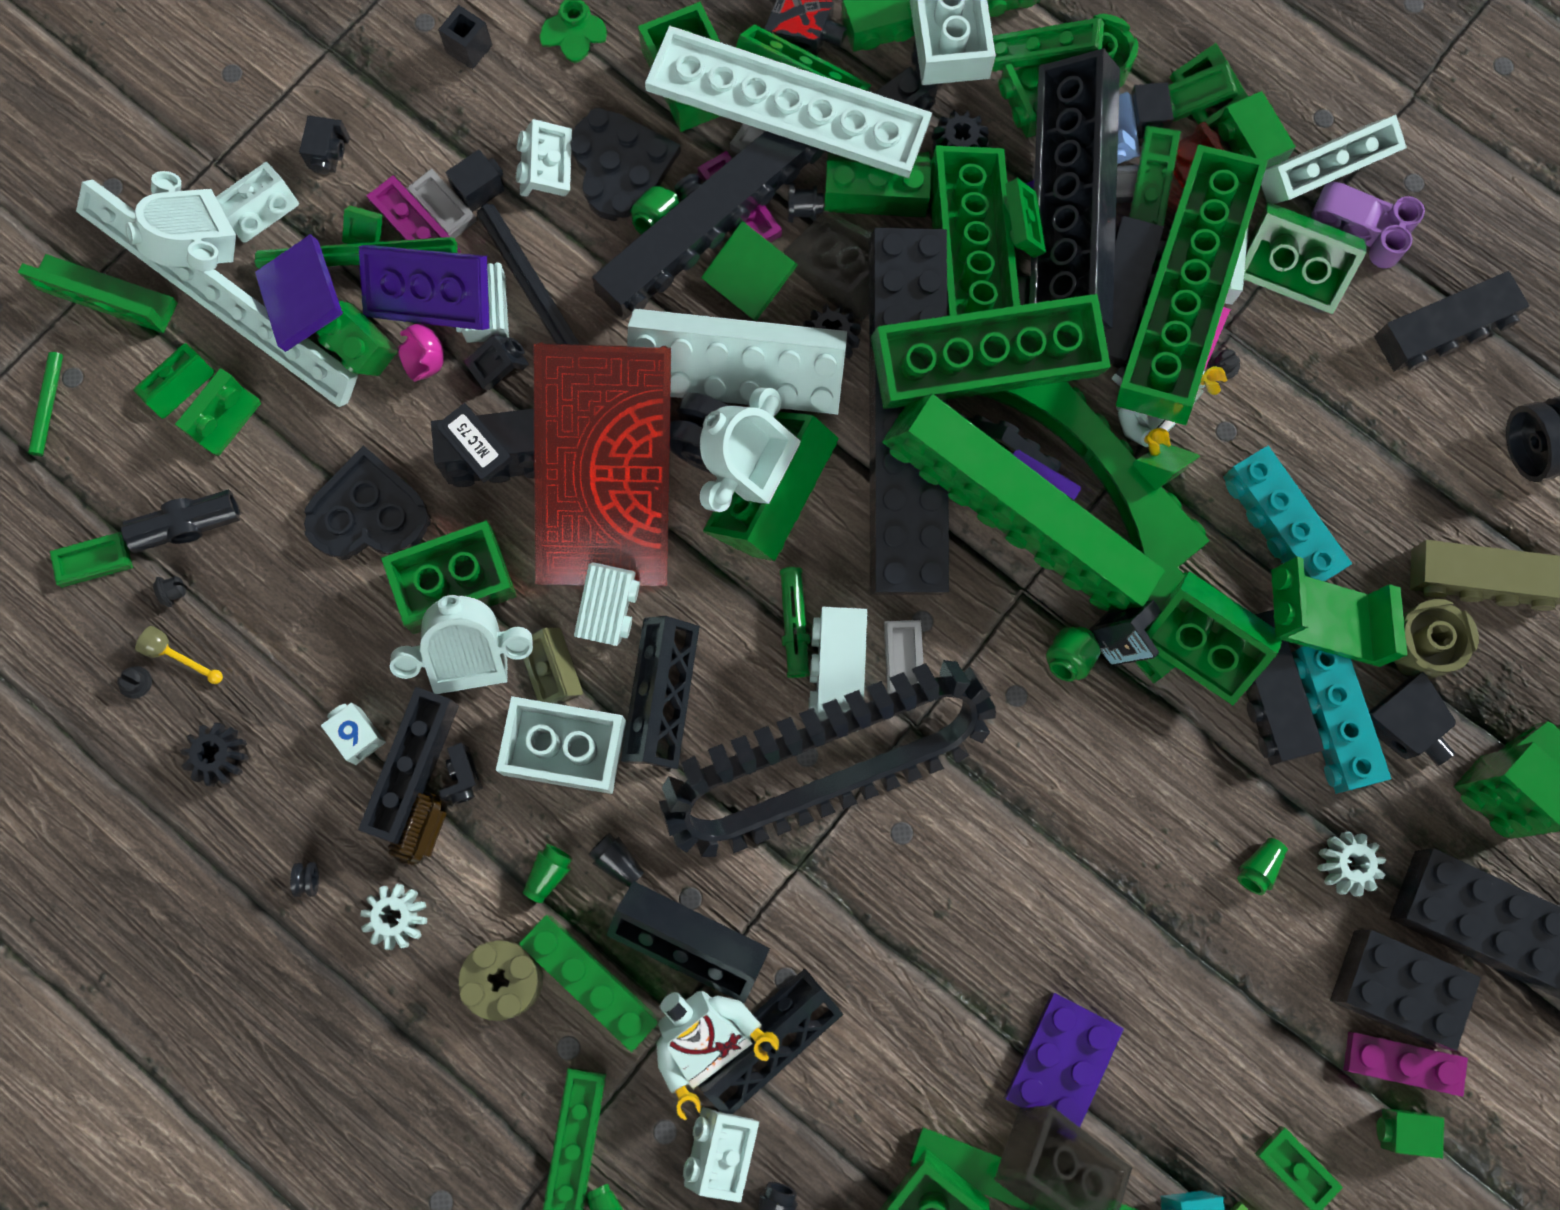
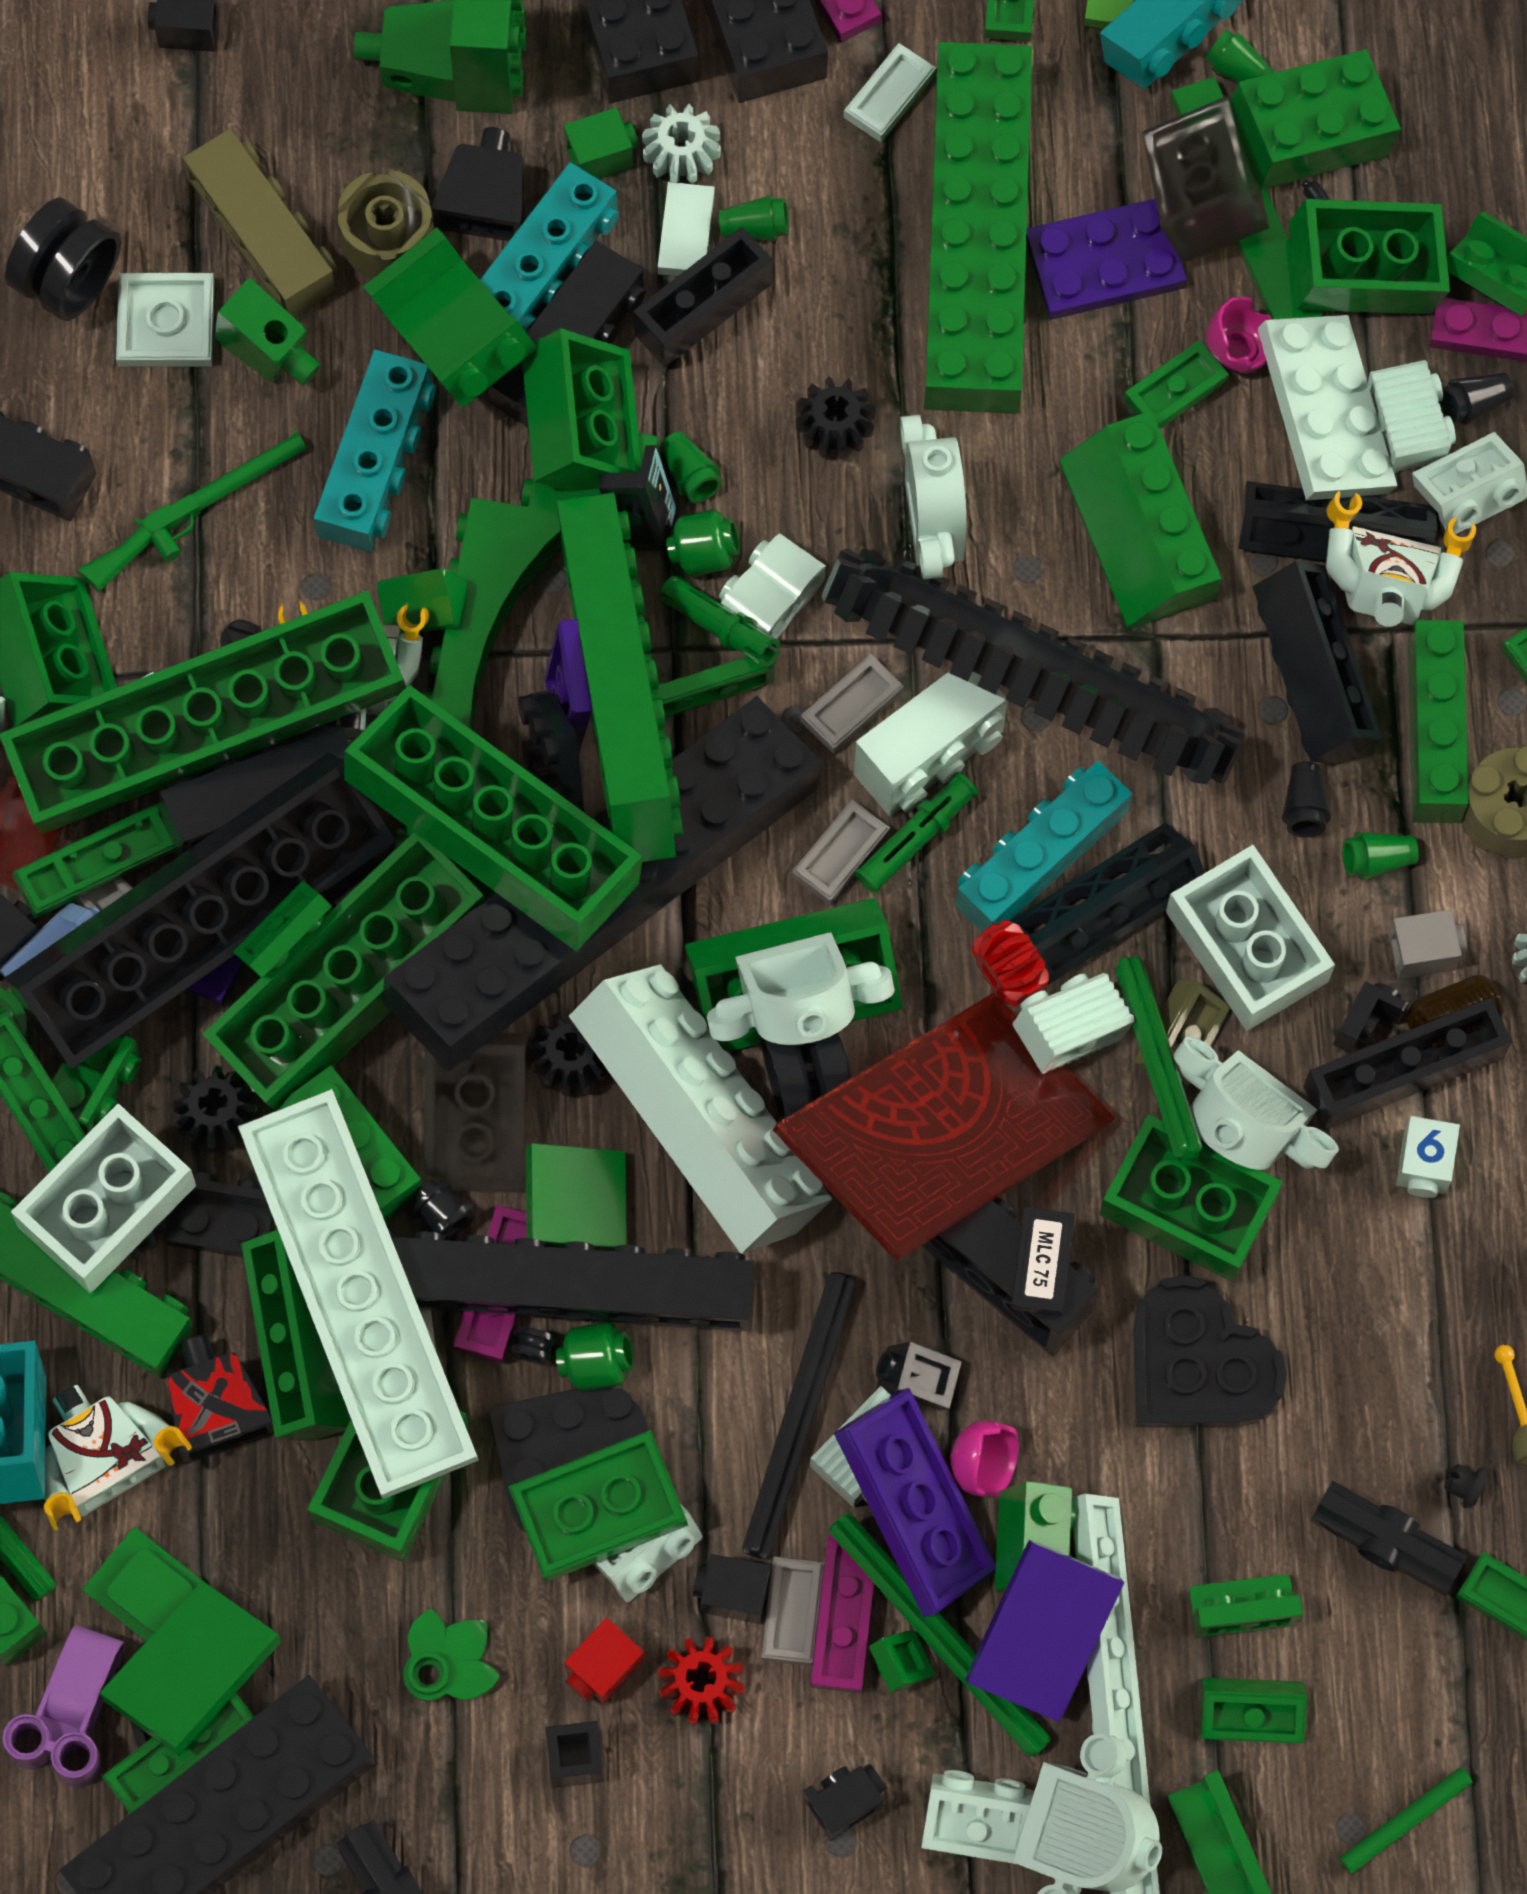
camera: 130 degrees left, 5 degrees down
(446, 128) = (689, 1667): none -> red gear
(468, 848) = (1426, 944): none -> light grey brick
(499, 92) = (602, 1663): none -> red brick
(538, 625) = (1158, 1059): none -> green axle
(574, 142) = (598, 1506): none -> green tile
(669, 598) = (1010, 962): none -> red gear
(719, 675) = (1043, 848): none -> teal brick
(796, 1157) = (1410, 415): none -> light aqua brick
(821, 574) = (840, 852): none -> light grey tile
(847, 1108) = (1327, 407): none -> light aqua plate
(872, 921) = (1140, 521): none -> green slope
(937, 1096) = (1235, 336): none -> dark pink hair
(940, 1026) = (1177, 384): none -> green plate
(981, 581) = (713, 685): none -> green tile
(988, 800) = (934, 496): none -> light aqua piece
(1001, 615) = (732, 629): none -> green pin
(1011, 667) = (775, 585): none -> light aqua brick
(1082, 808) = (835, 402): none -> black gear
(1126, 687) = (691, 469): none -> green cone
(1152, 1000) = (978, 228): none -> green brick
(1234, 784) = (703, 297): none -> black brick
(1288, 1030) = (889, 92): none -> light aqua tile
(1290, 821) = (685, 227): none -> light aqua tile
(1334, 379) = (159, 523): none -> green piece
(1389, 813) = (601, 143): none -> green brick
(1412, 512) = (264, 335): none -> green torso
(1465, 479) = (165, 320): none -> light aqua tile

